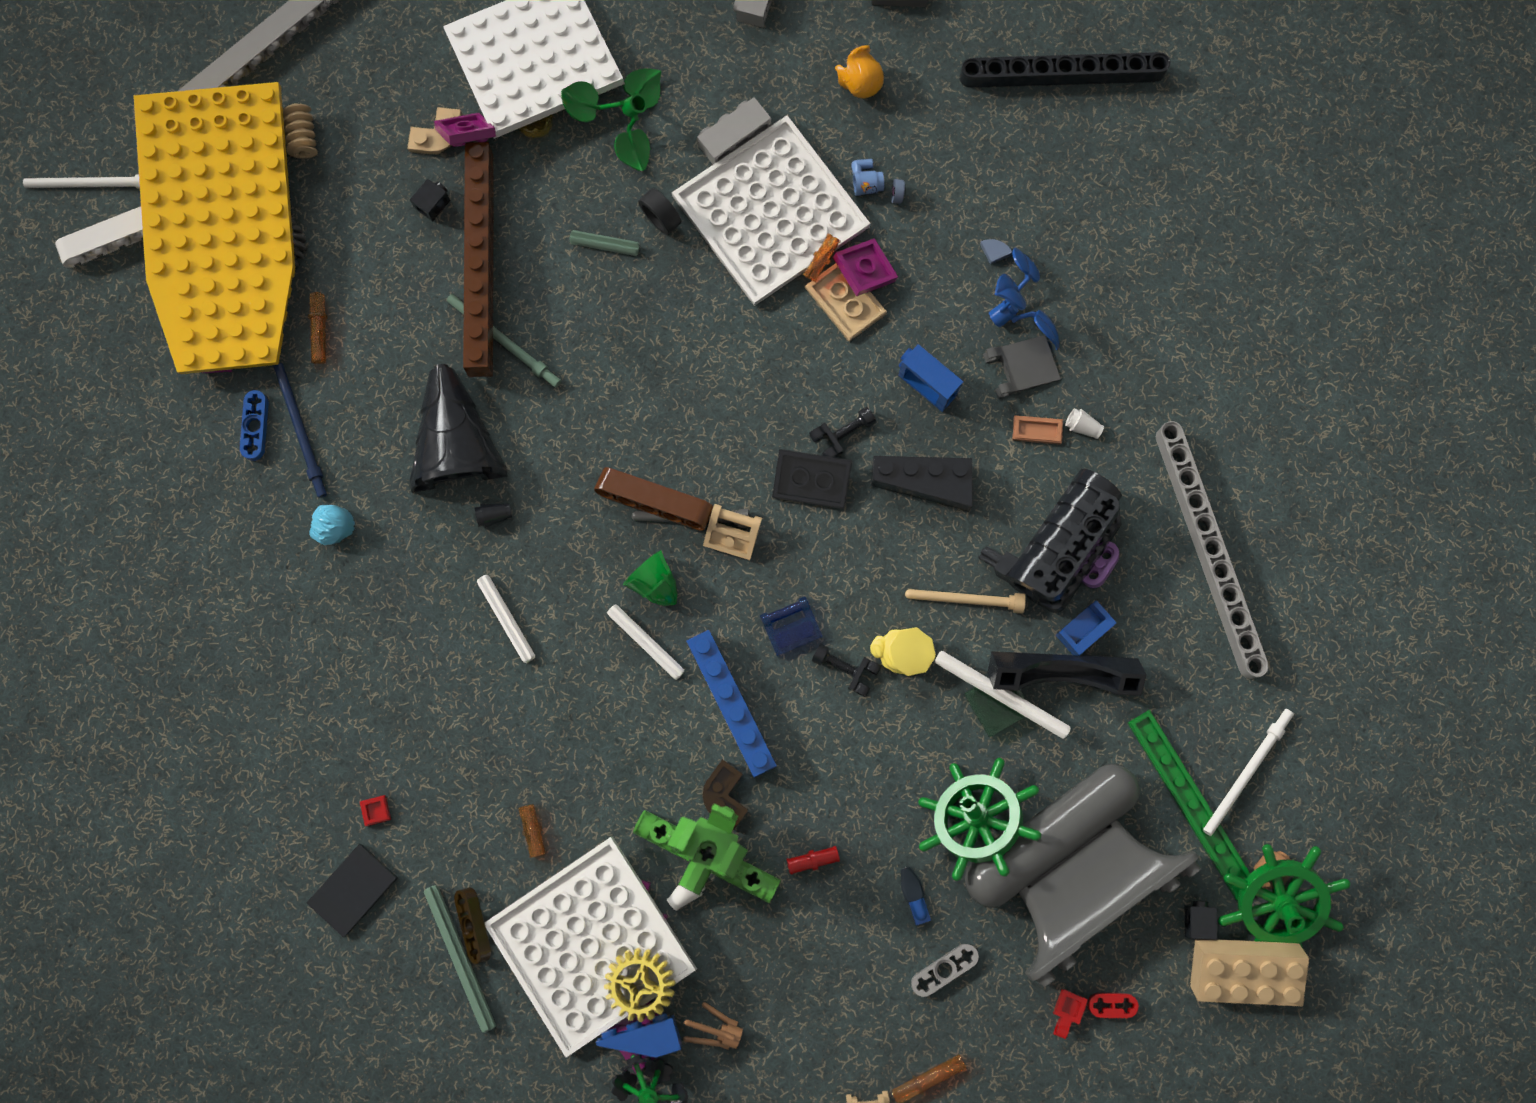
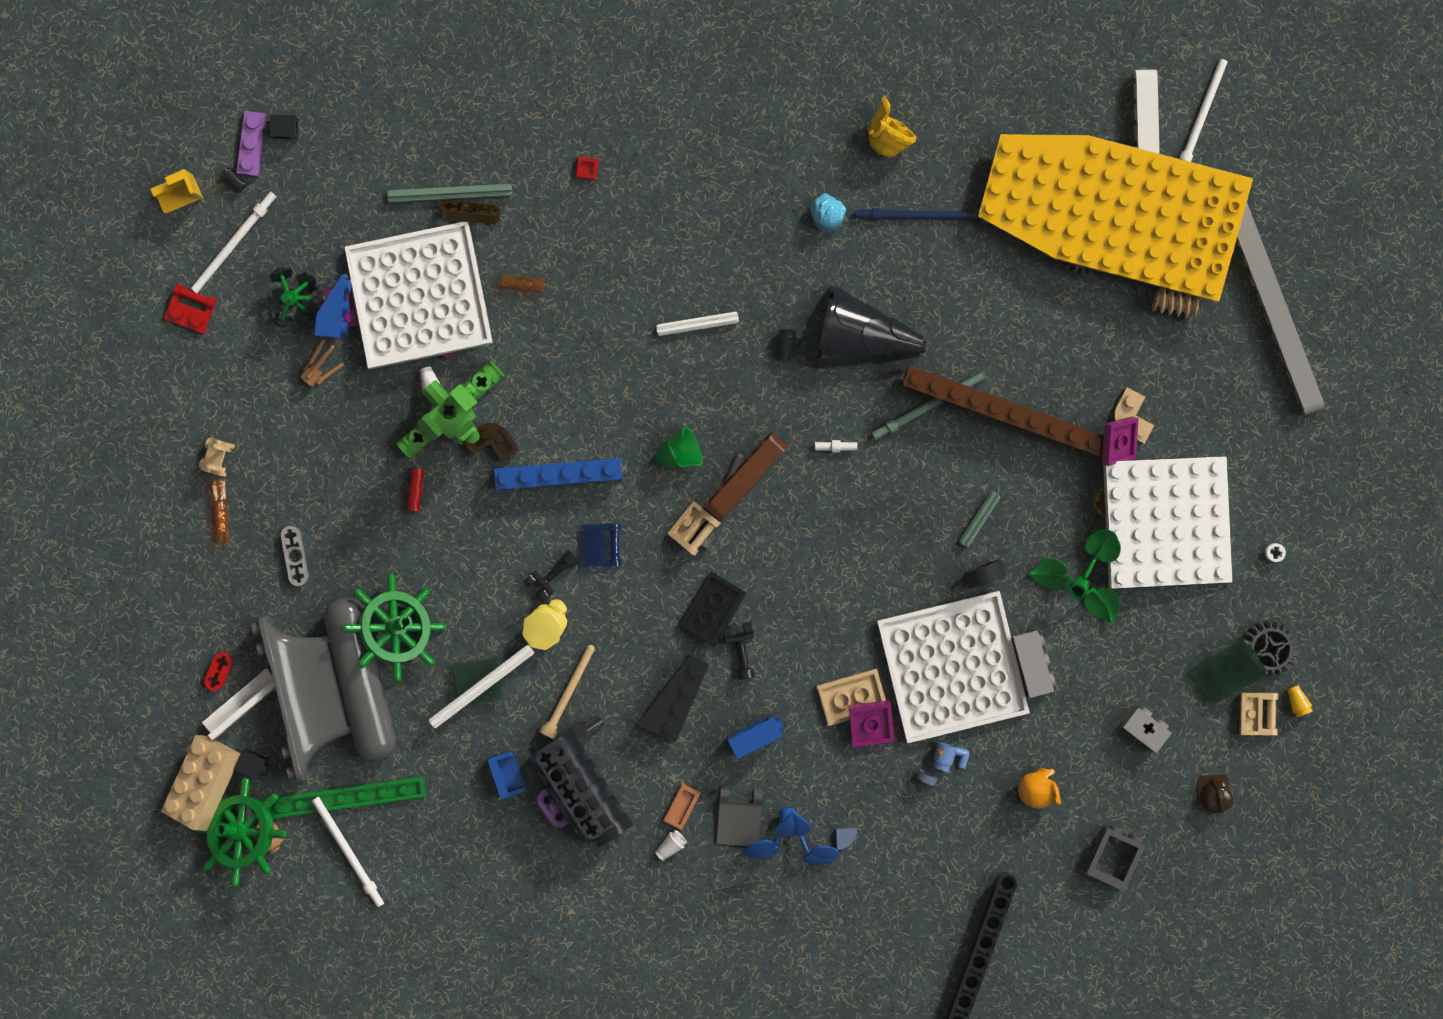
camera: 110 degrees right, 10 degrees up
(222, 492) = (887, 134): none -> yellow head
(247, 418) = (924, 167): blue beam -> none
(317, 327) = (999, 259): clear orange axle -> none
(352, 890) = (533, 129): black tile -> none
(430, 199) = (1073, 390): black brick -> none
(584, 418) = (835, 446): none -> white bar
(645, 642) = (635, 426): white axle -> none
(650, 986) = (359, 311): light yellow gear -> none
(821, 257) = (891, 690): clear orange pin -> none
(914, 895) = (360, 556): black piece -> none
(1069, 1009) = (228, 637): red plate -> none
(1112, 674) = (493, 708): black arch -> none
(1139, 964) = (240, 704): none -> white fence
(1208, 561) = (520, 904): light grey beam -> none

